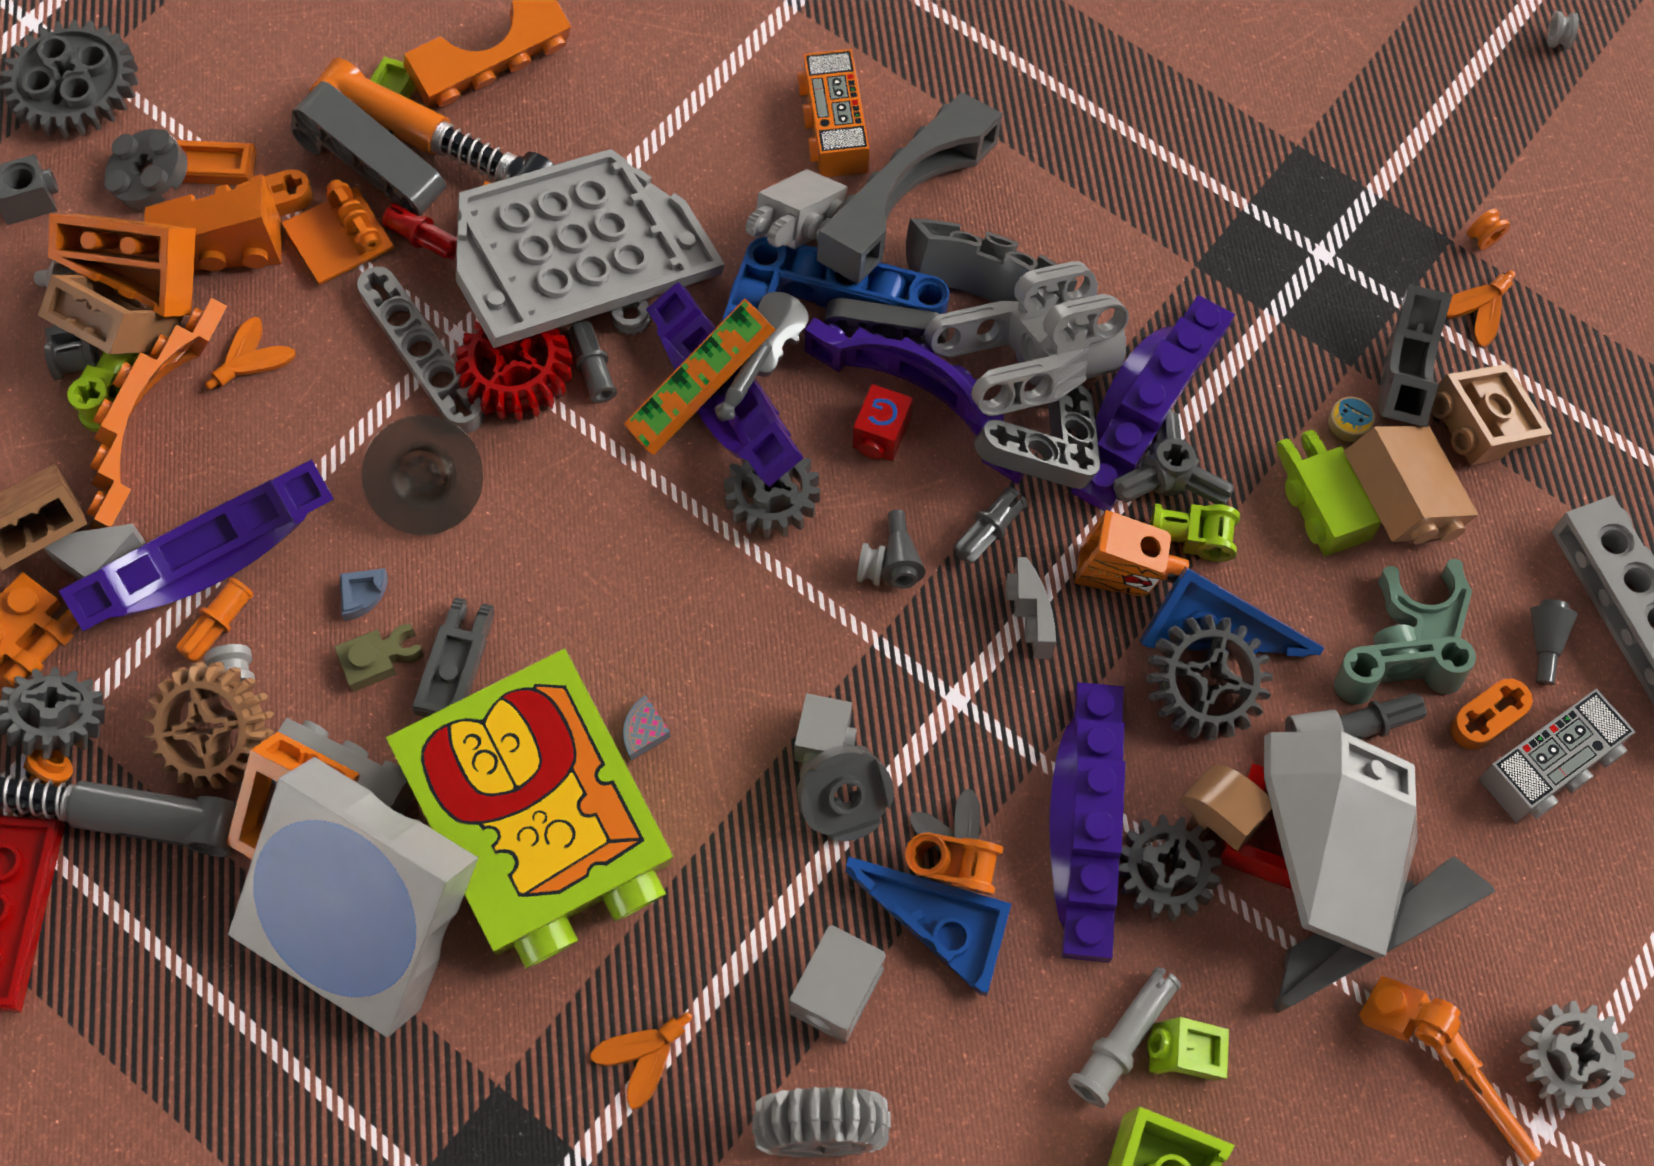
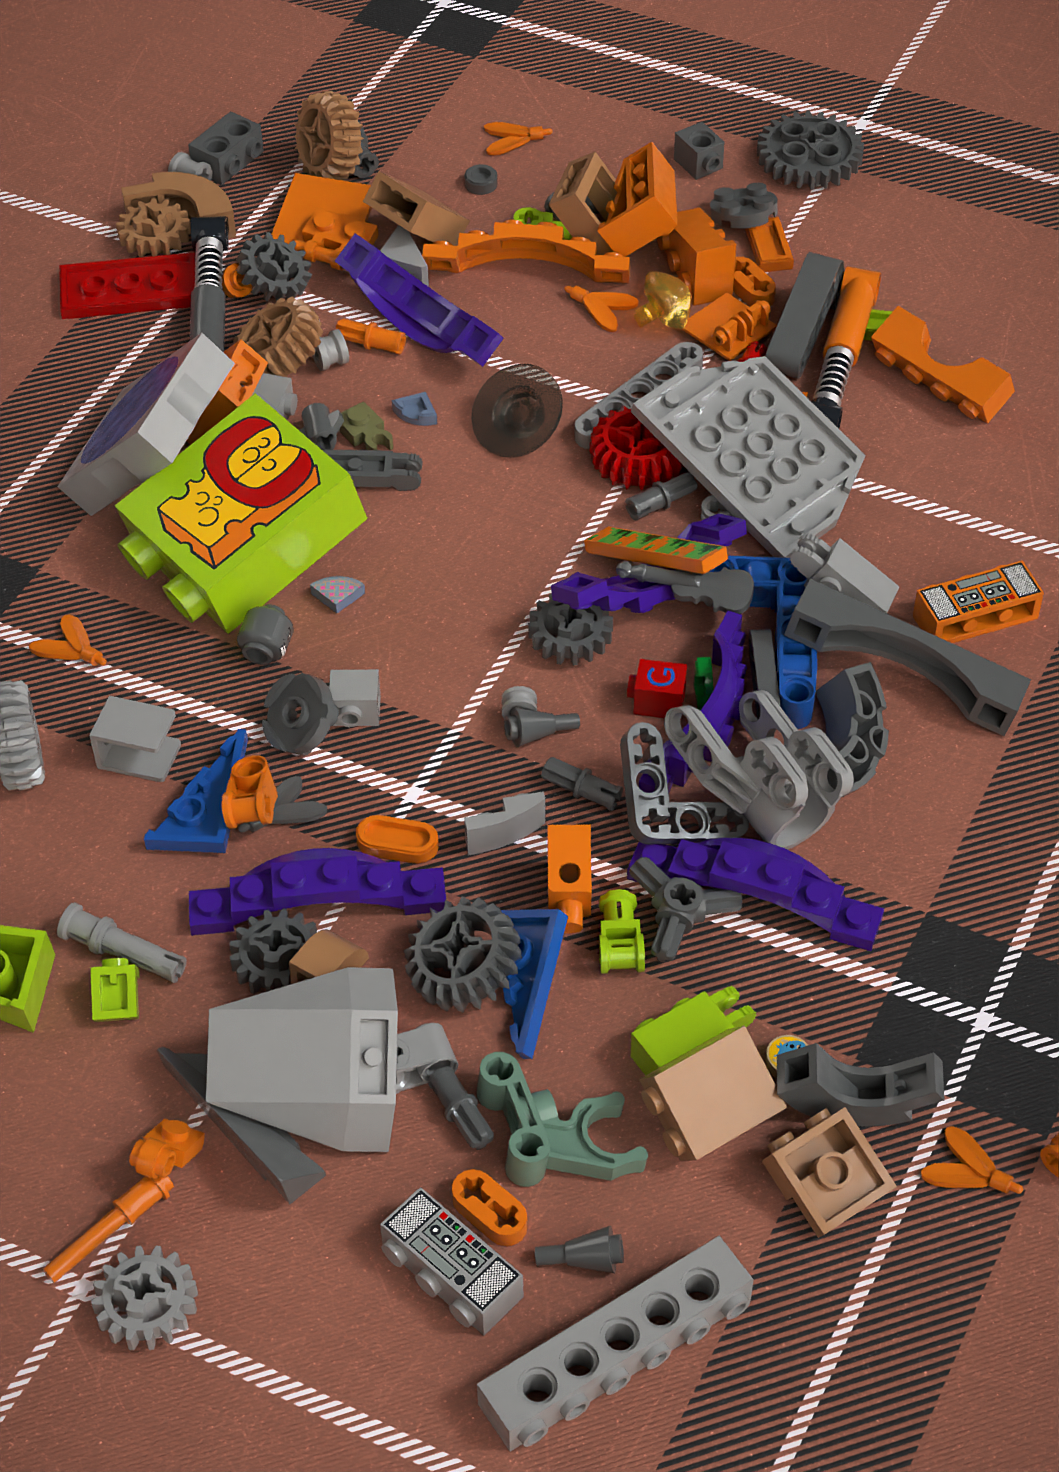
camera: 80 degrees right, 15 degrees down
(290, 280) = (668, 301): none -> clear yellow piece
(365, 705) = (321, 425): none -> dark grey piece
(703, 815) = (265, 634): none -> dark grey head
(885, 377) = (703, 681): none -> green tile
(1022, 724) = (397, 839): none -> orange tile

